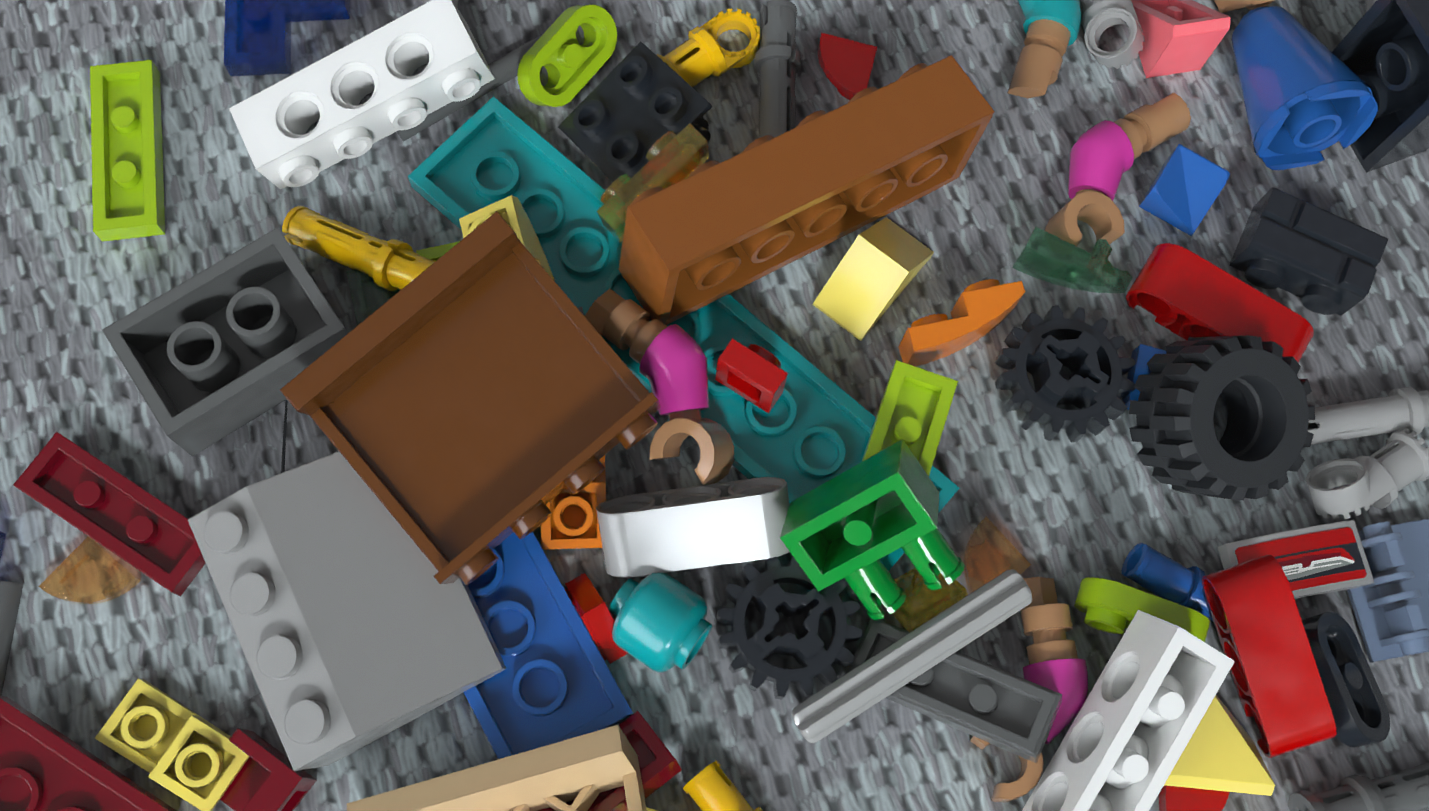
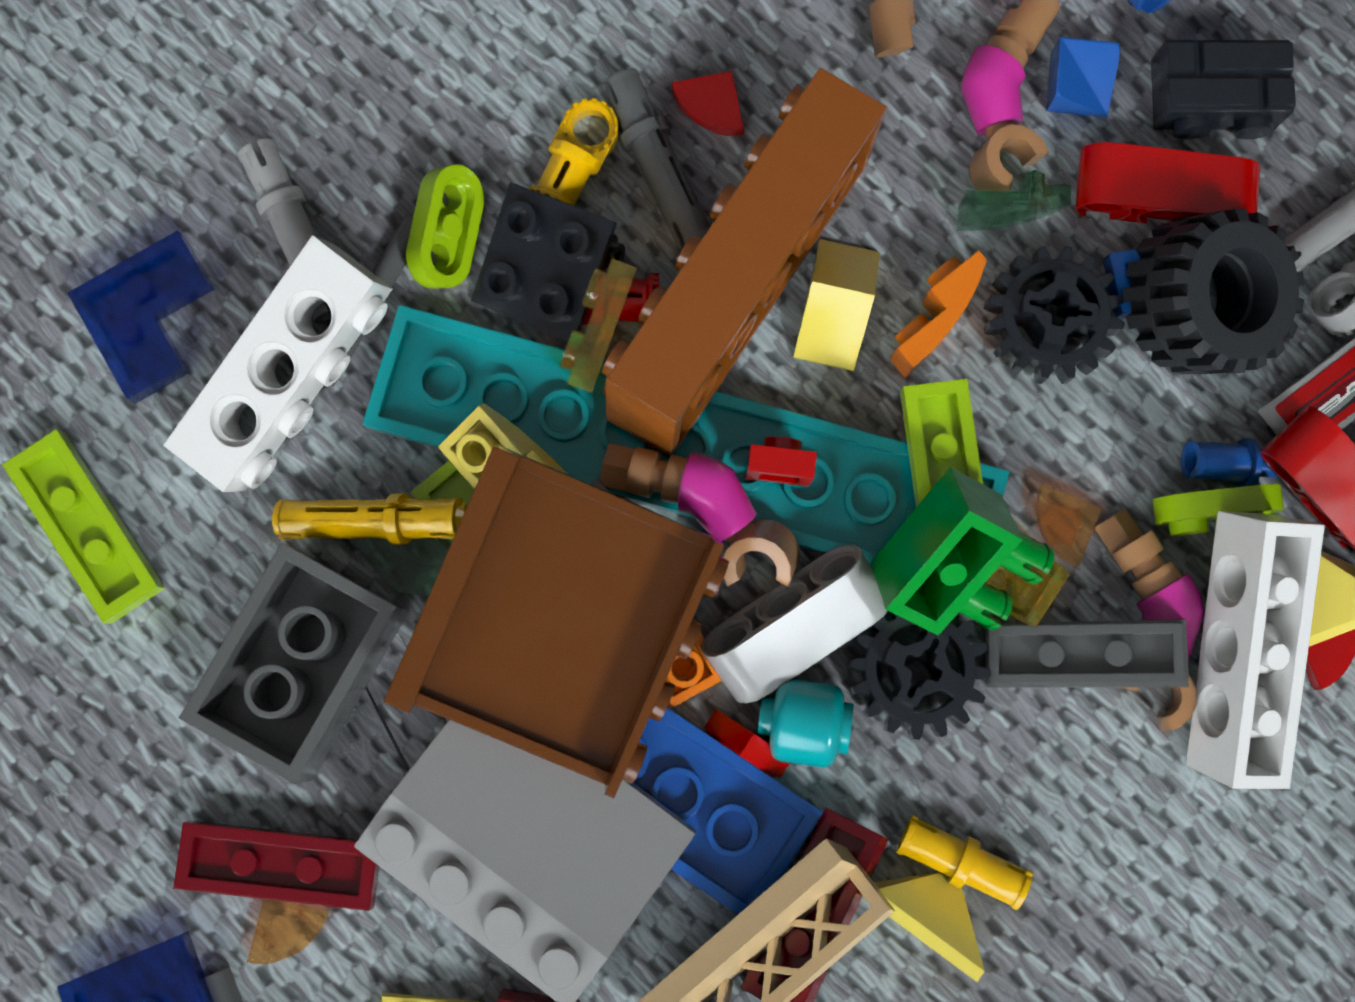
camera: 20 degrees left, 10 degrees up
(912, 656) = (1041, 645): light grey axle -> none

